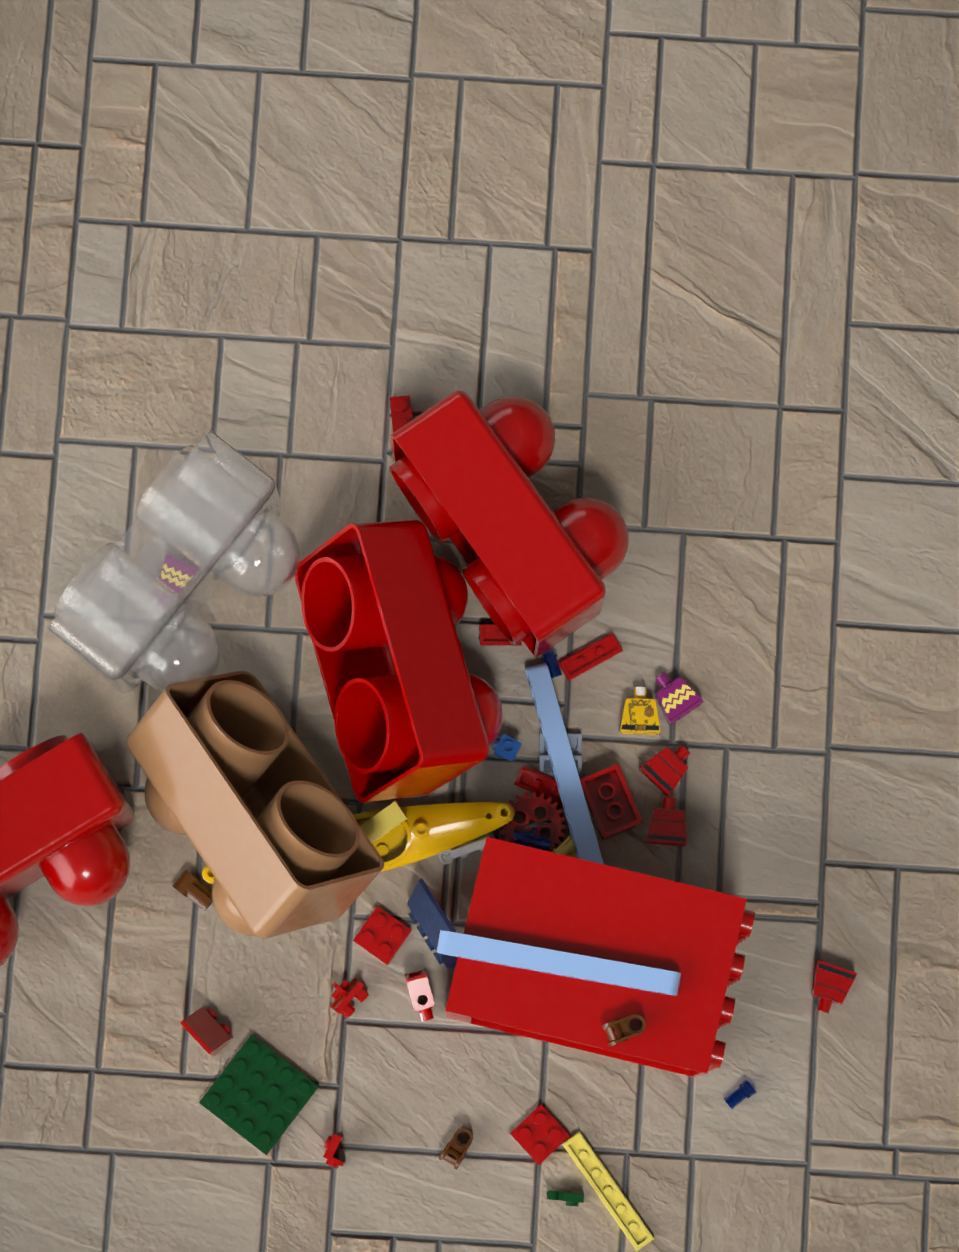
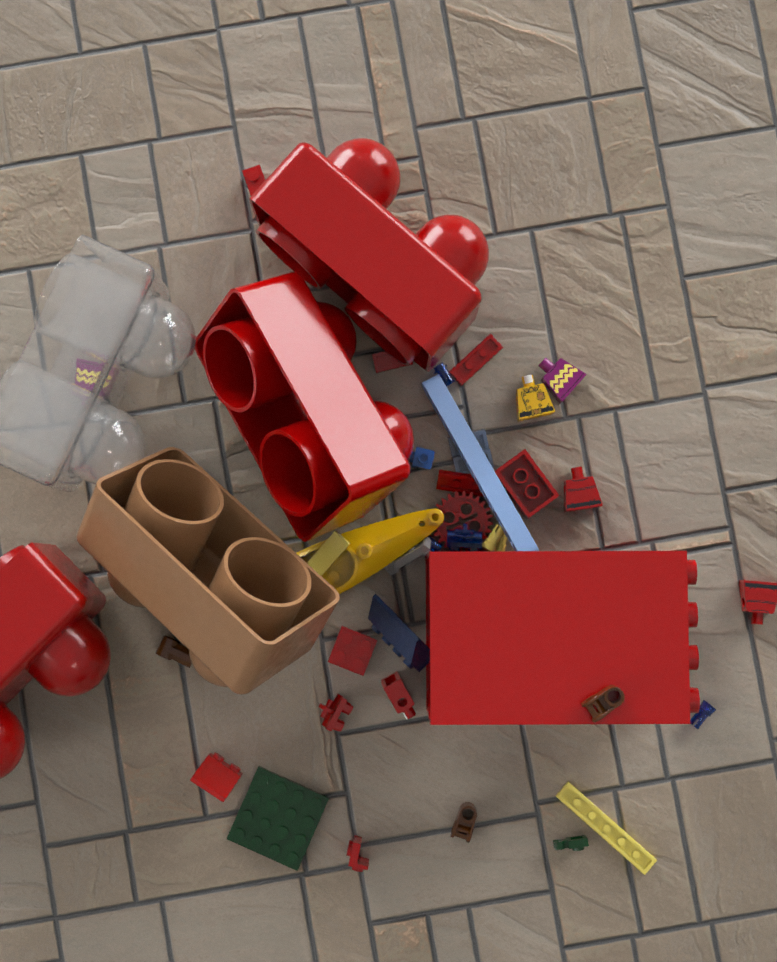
camera: 10 degrees left, 5 degrees up
(539, 1134) = (534, 792): red plate -> none
(558, 962) = (526, 655): light blue beam -> none
(666, 769) = (567, 443): red torso -> none

